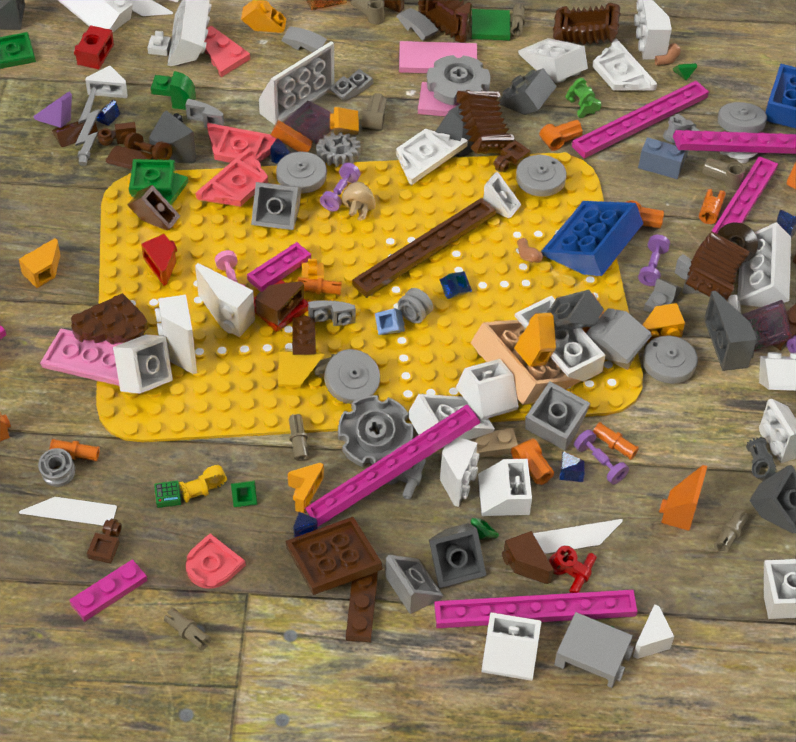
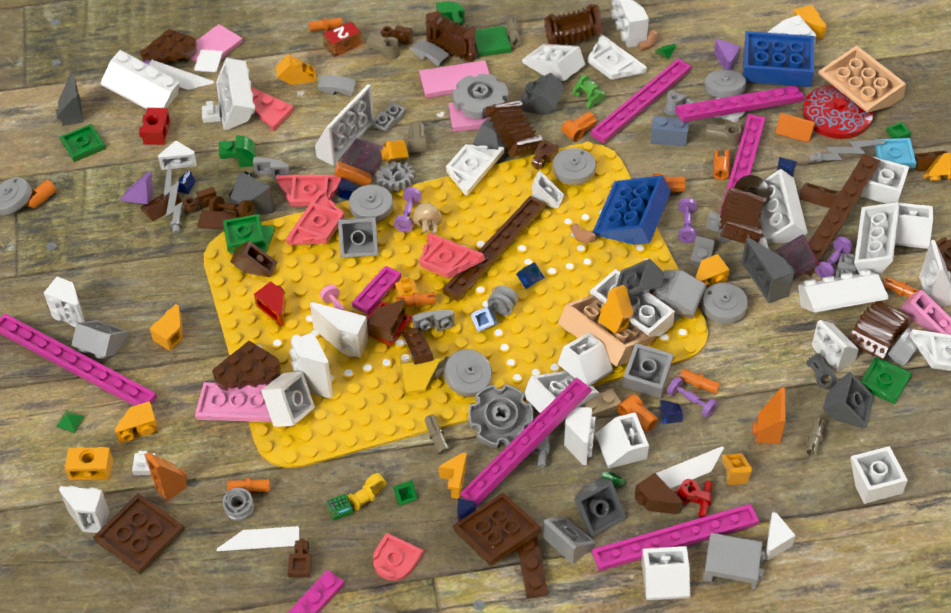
camera: 10 degrees left, 0 degrees up
(368, 247) = (448, 257): none -> coral wing
(628, 547) = (737, 468): none -> light orange slope
(754, 86) = (726, 53): none -> medium lavender slope

